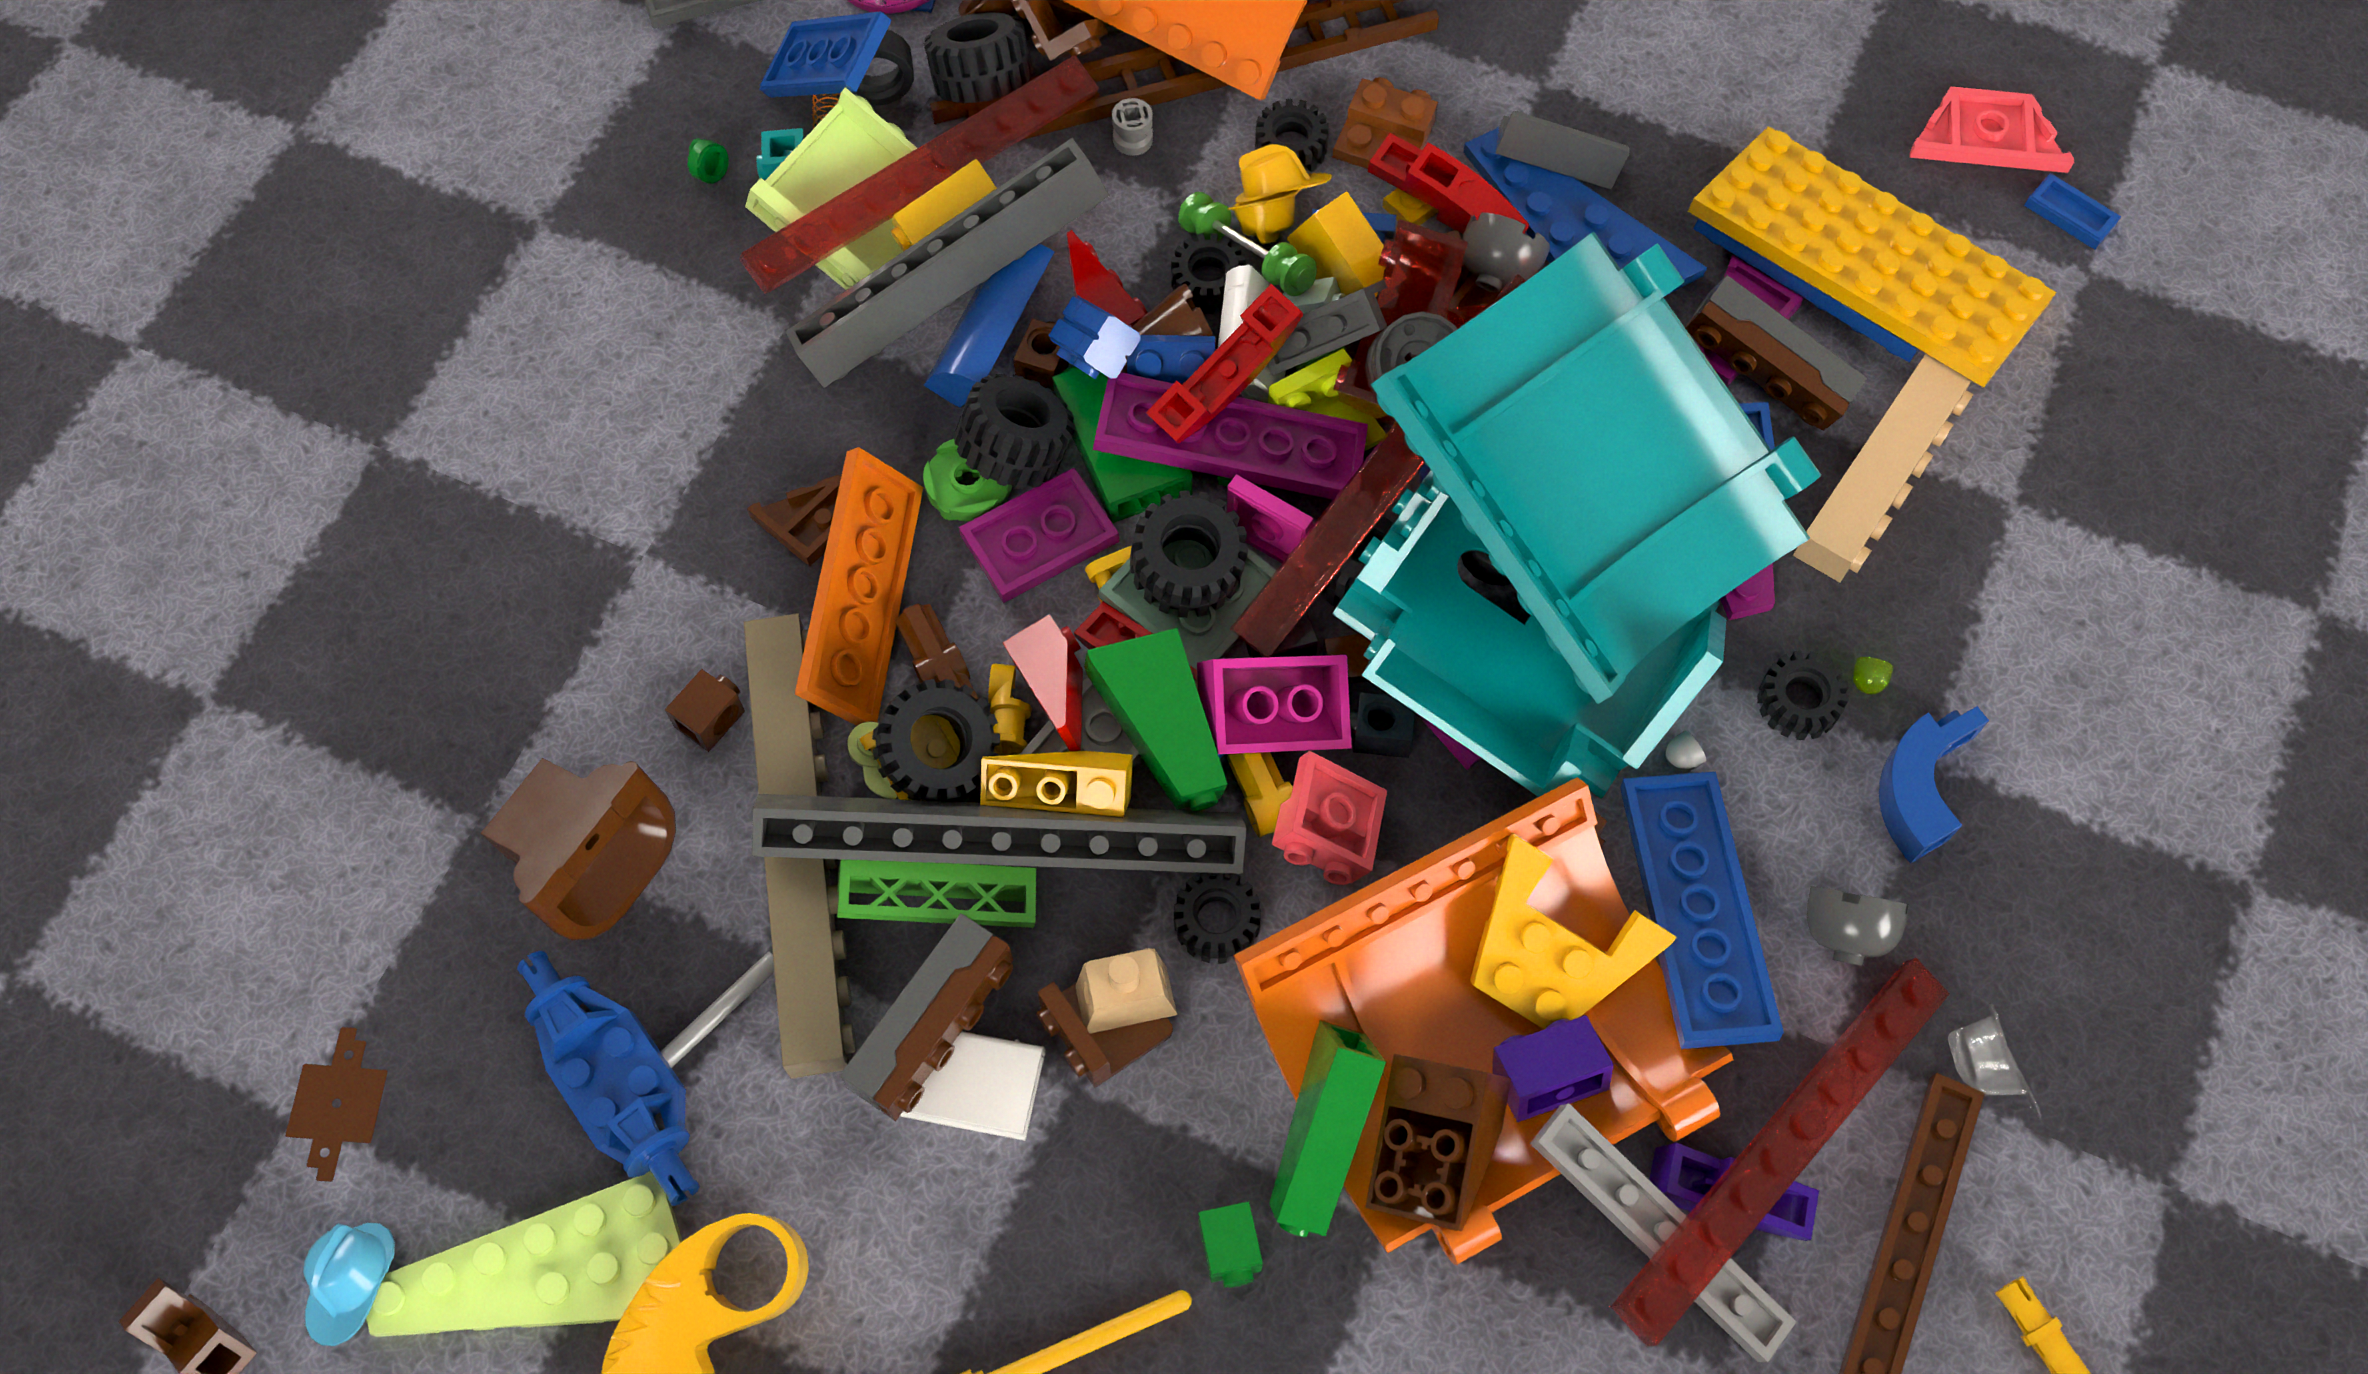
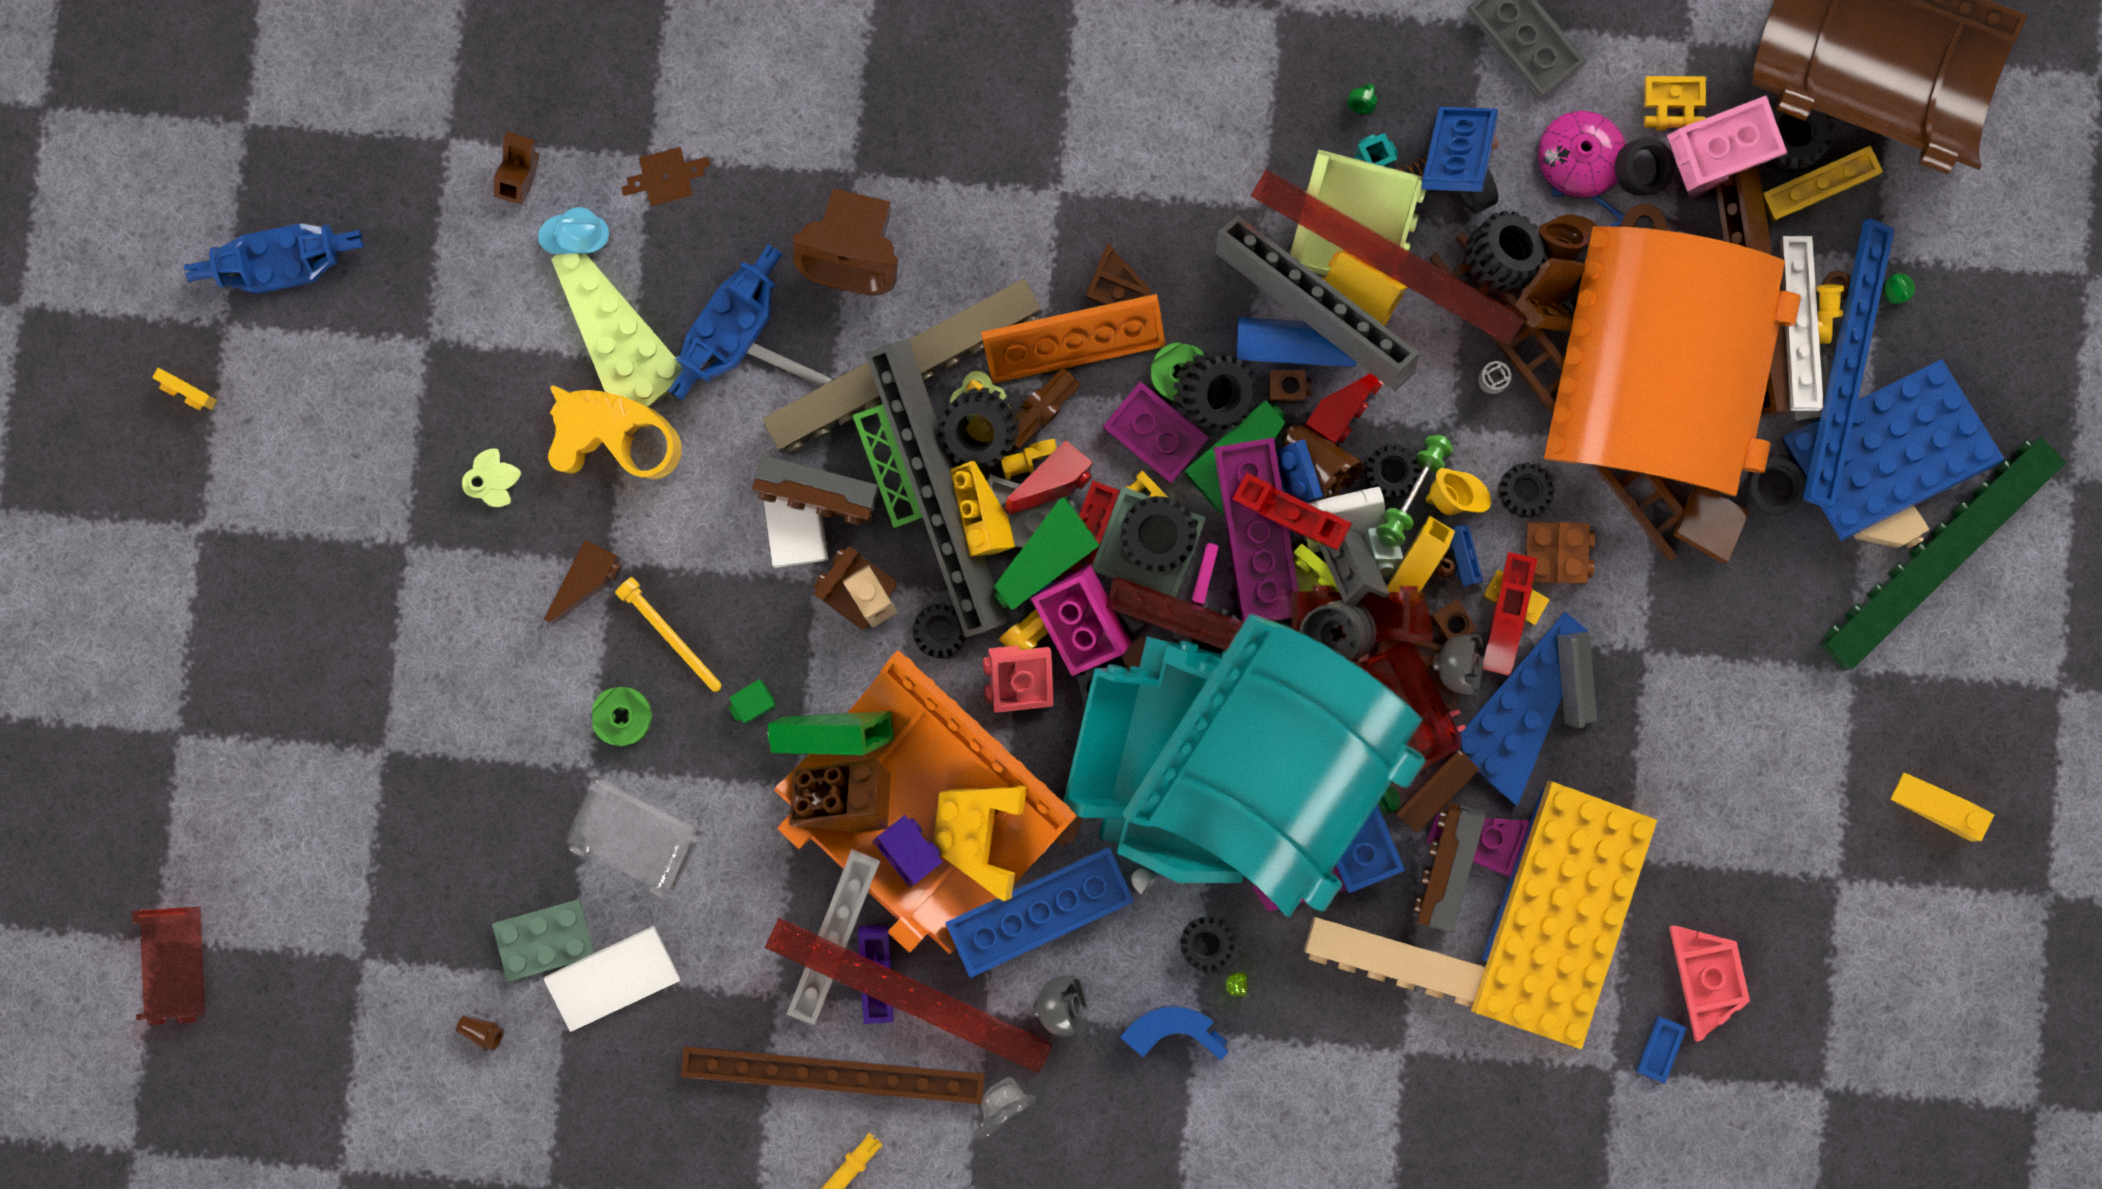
camera: 80 degrees right, 20 degrees up
(706, 709) = (965, 278): reddish brown brick -> none
(1093, 339) = (1290, 419): blue brick -> none
(1274, 171) = (1482, 493): yellow piece -> none

